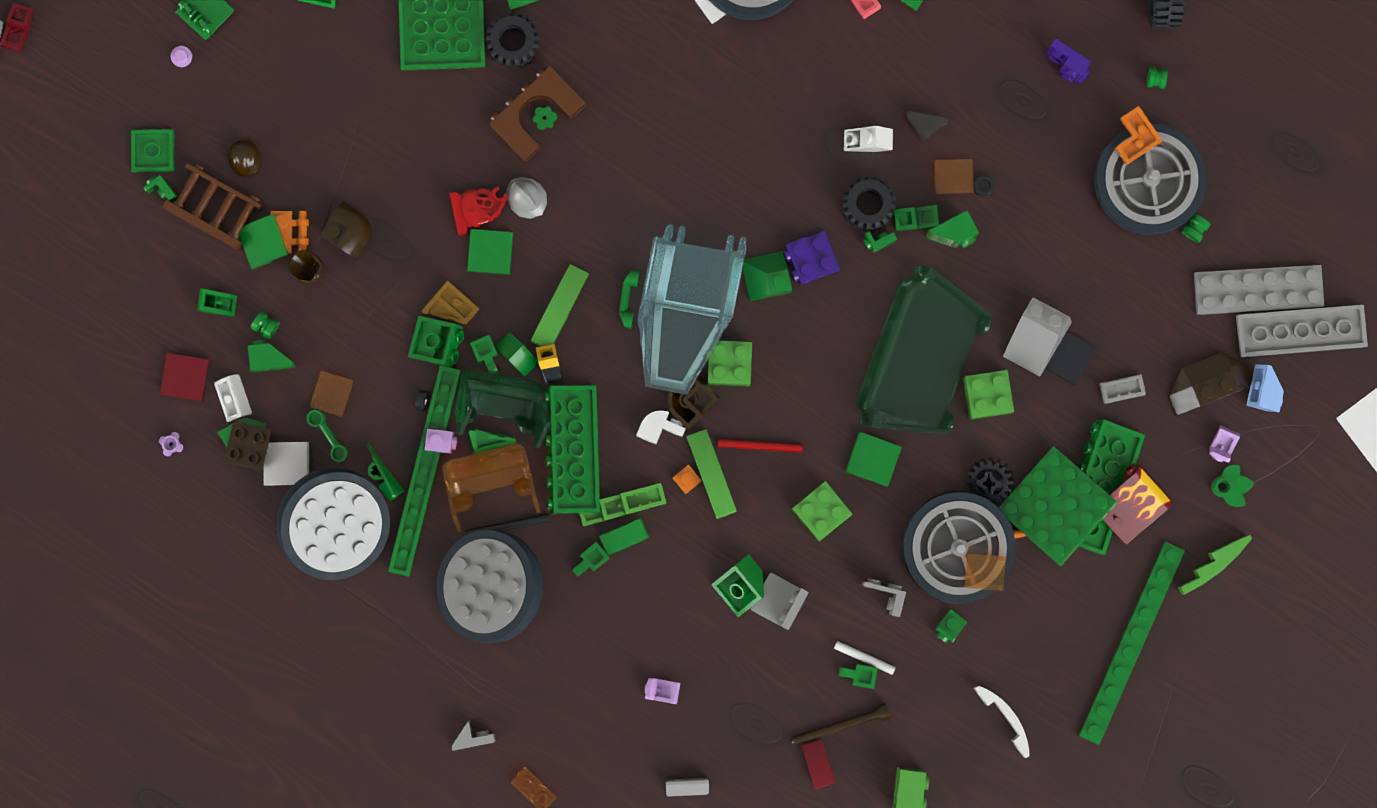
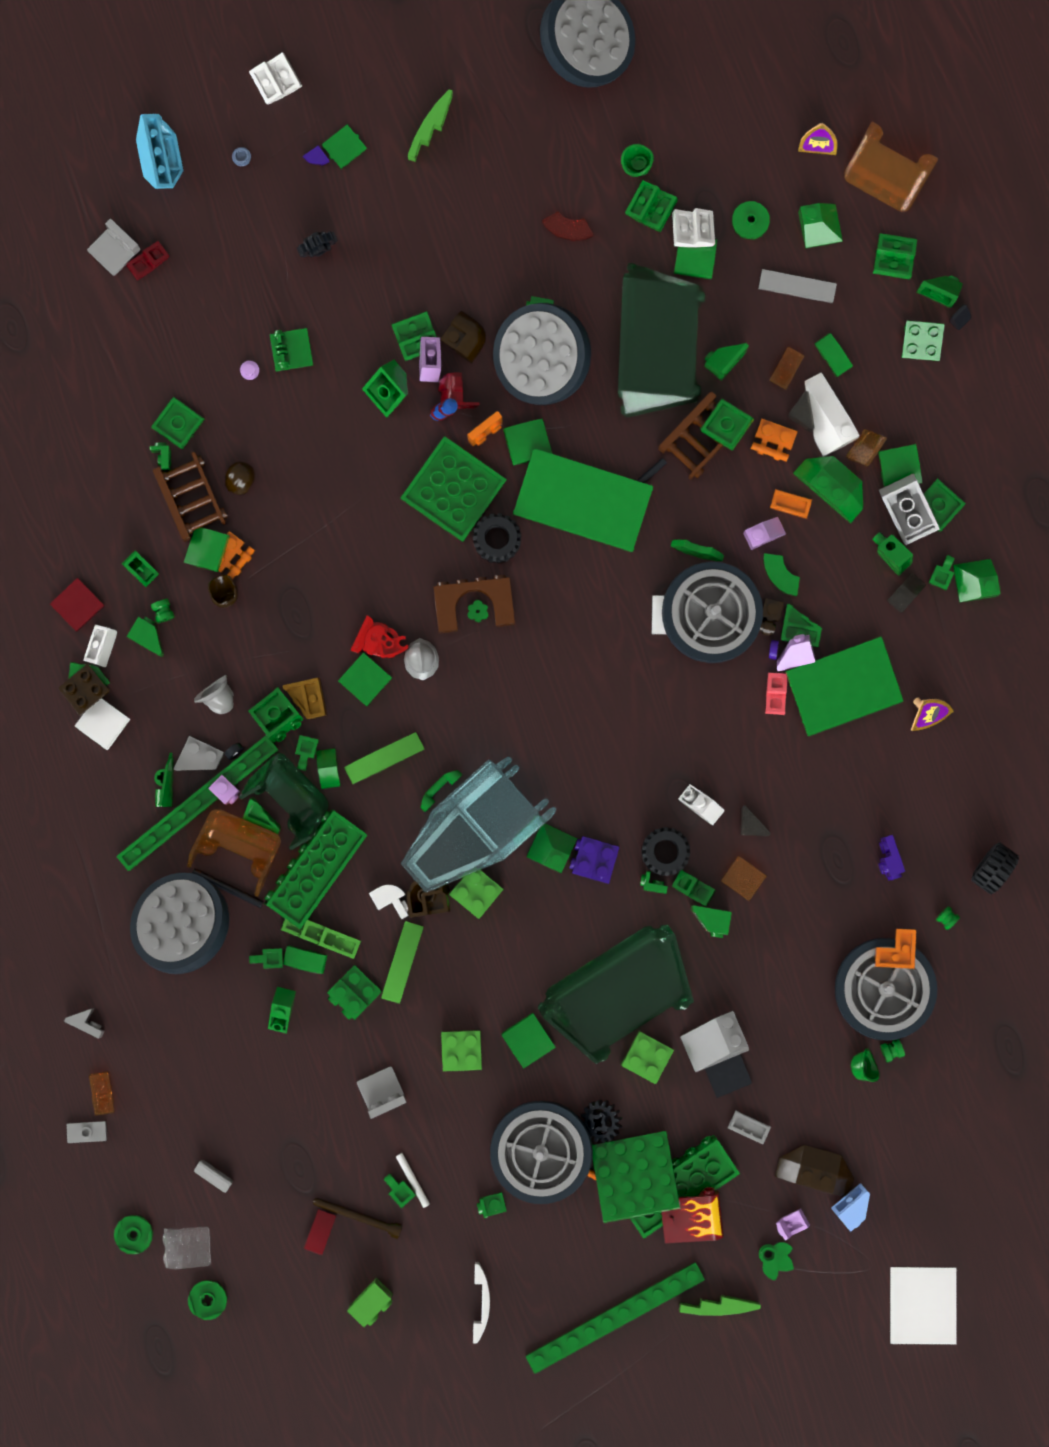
camera: 40 degrees right, 0 degrees up
(174, 438) = (27, 640): lavender plate -> none
(318, 419) = (149, 707): green bar -> none
(331, 393) = (173, 696): clear orange piece -> none
(333, 523) = (101, 792): wheel -> none
(348, 230) = (274, 586): dark brown brick -> none
(371, 363) = (217, 696): none -> light grey piece
(394, 429) = (198, 756): none -> light grey wing
(549, 365) = (344, 795): leg -> none
(637, 595) = (281, 1009): none -> green slope
(662, 690) = (247, 1092): lavender bracket -> none
(687, 479) = (382, 952): orange plate -> none
(689, 533) = (353, 993): none -> green plate
(741, 585) = (362, 1060): green slope -> none
(759, 445) = (454, 968): red bar -> none
(894, 604) = (463, 1157): light grey bracket -> none
(984, 186) = (760, 901): black tile -> none
(985, 572) = (545, 1185): clear orange piece -> none
(1182, 260) = (864, 1067): none -> green helmet
(1259, 290) = (905, 1130): light grey plate -> none
(1301, 331) = (913, 1184): light grey plate -> none

